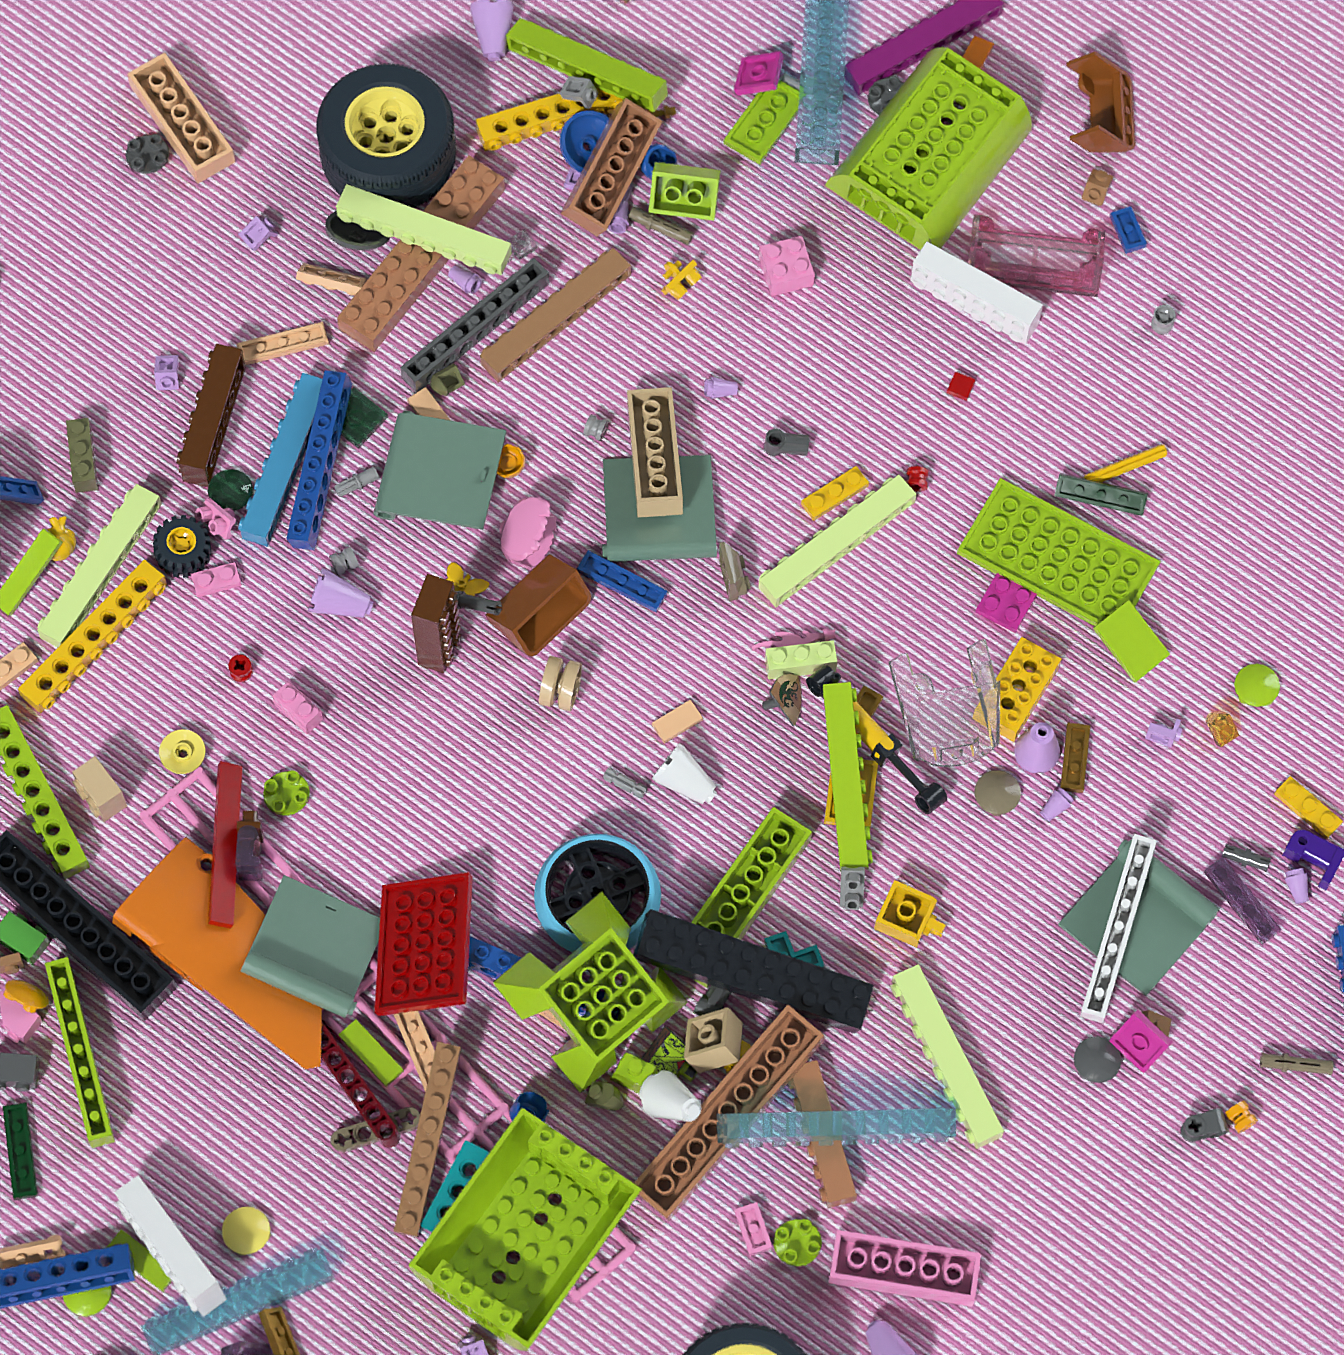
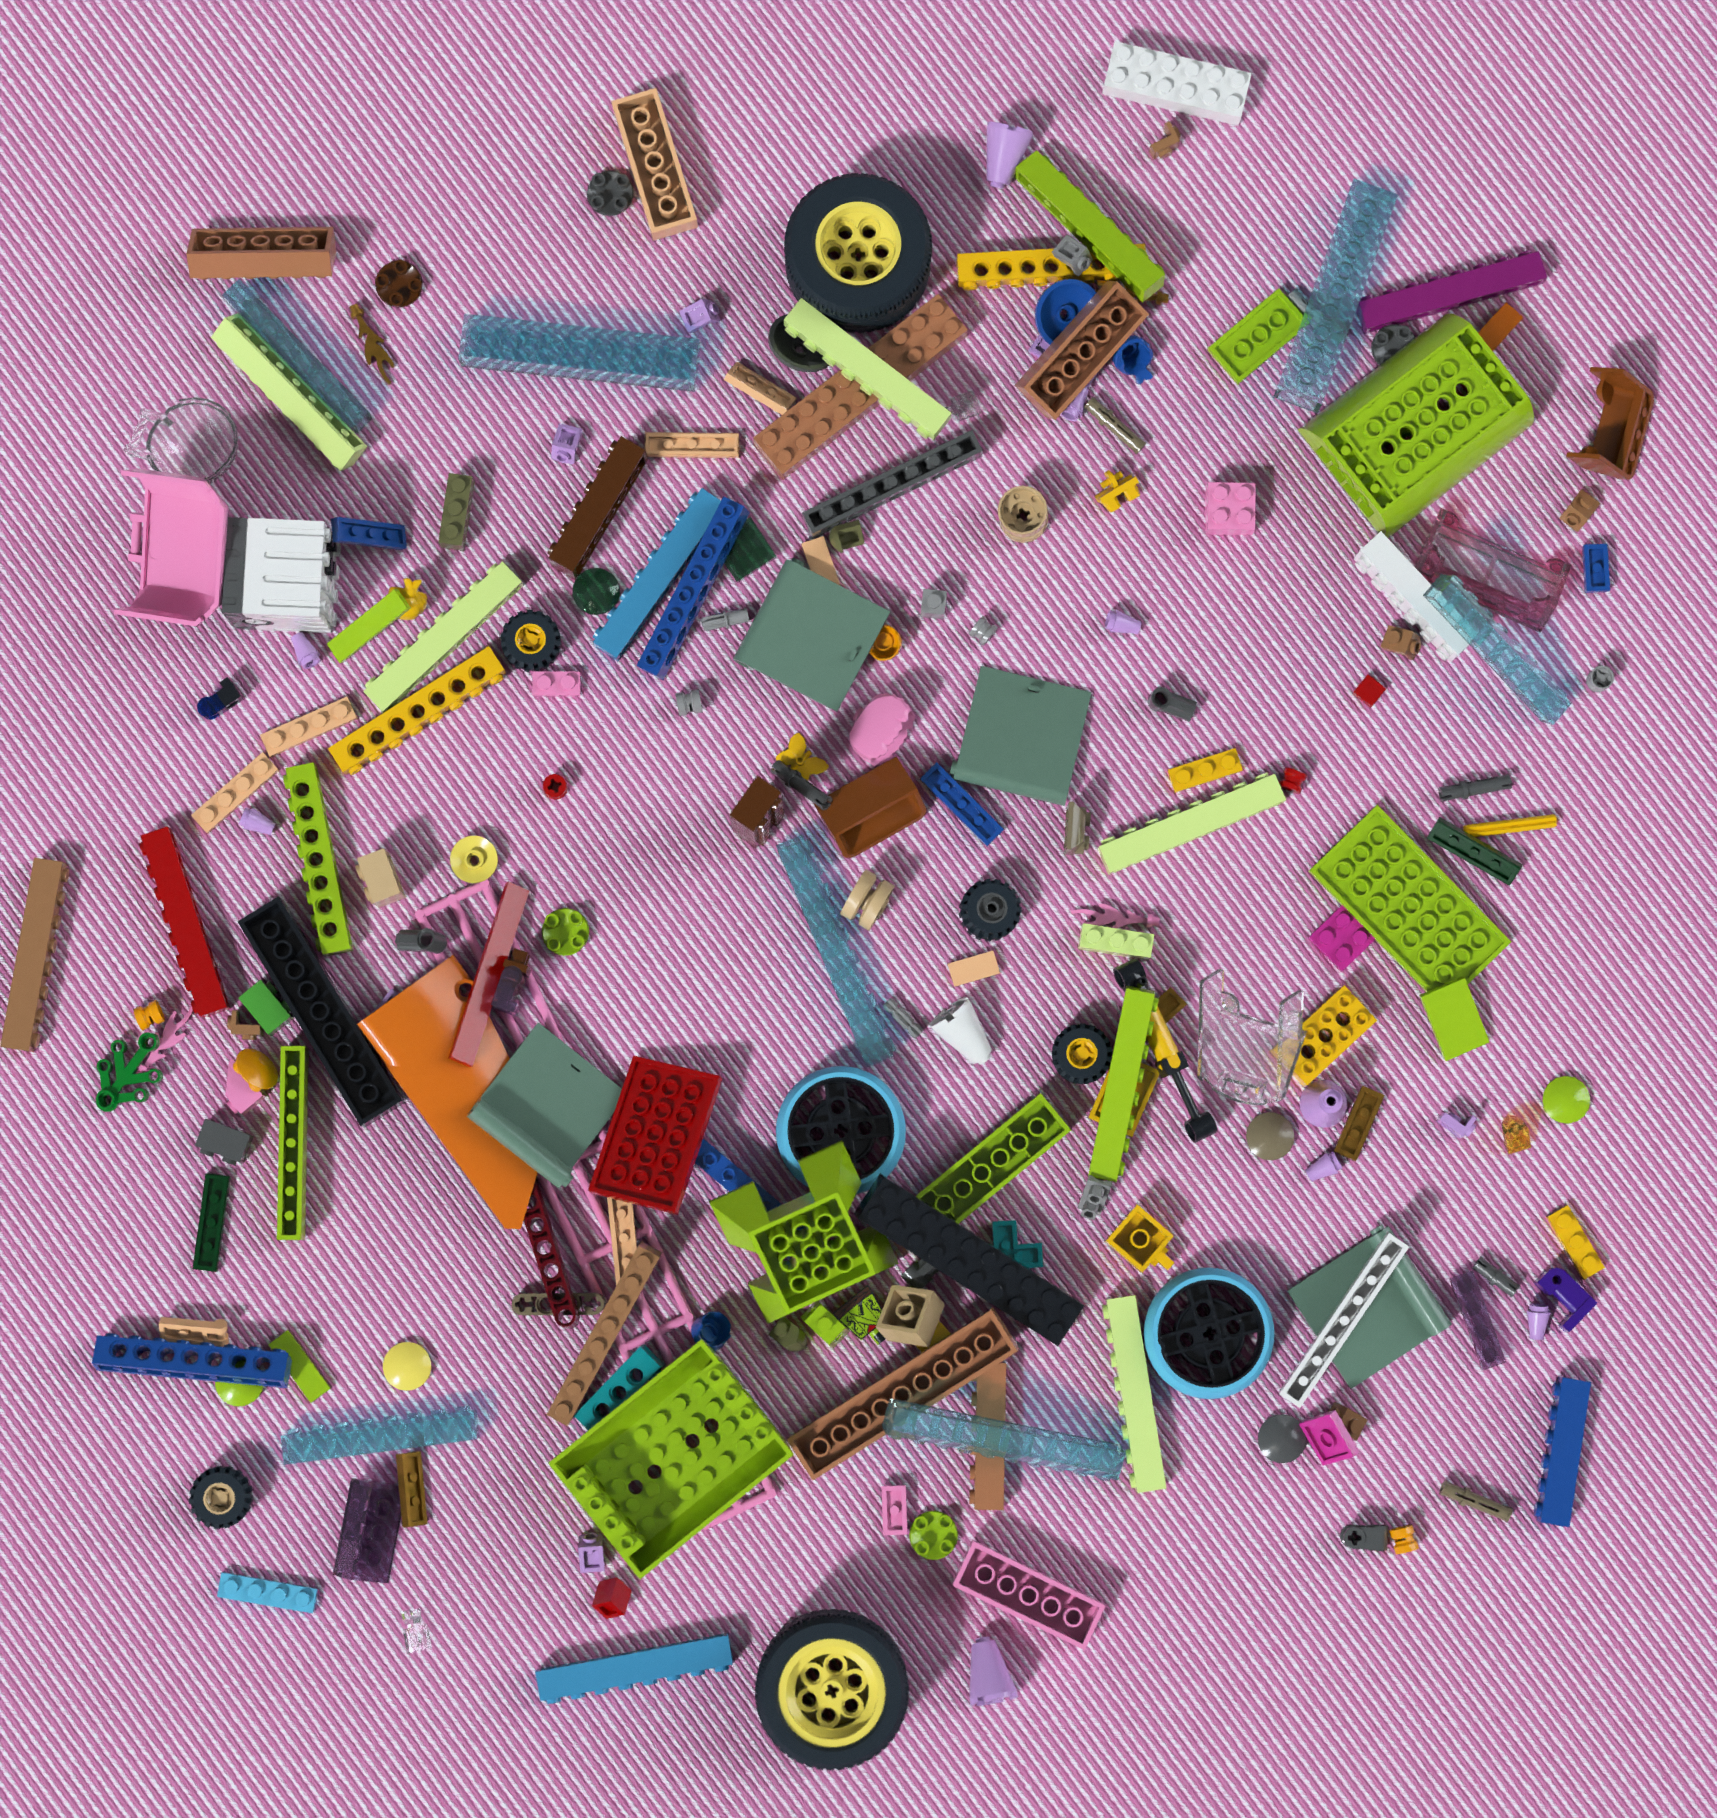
camera: 15 degrees right, 15 degrees up
(154, 834) = (420, 941): none -> dark grey piece
(157, 290) = (579, 352): none -> clear light blue brick
(169, 1247) = (327, 1369): white brick -> none
(218, 519) = (575, 621): bright pink hips -> none
(297, 707) = (600, 846): bright pink brick -> none
(338, 597) = (672, 741): lavender cone -> none
(371, 1053) = (574, 1226): lime tile -> none
(466, 280) = (897, 429): lavender cone -> none
(543, 416) = (933, 604): none -> light grey brick
(544, 741) = (834, 950): none -> clear light blue brick
(555, 314) = (977, 494): medium nougat brick -> none
(598, 308) = (1027, 501): none -> tan wheel
(654, 452) = (1033, 679): tan brick -> none
(668, 1098) = (850, 1364): white cone -> none
(676, 663) = (990, 910): none -> black wheel
(684, 191) = (1149, 397): lime brick -> none
(759, 73) = (1266, 284): dark pink plate -> none
(786, 695) = (1089, 977): shield -> none
(800, 766) = (1081, 1054): none -> black wheel
(976, 336) = (1401, 642): none -> medium nougat bracket
(1036, 956) = (1220, 1312): none -> wheel
(1063, 310) = (1497, 648): none -> clear light blue brick
(1074, 445) = (1466, 789): none -> dark grey pin

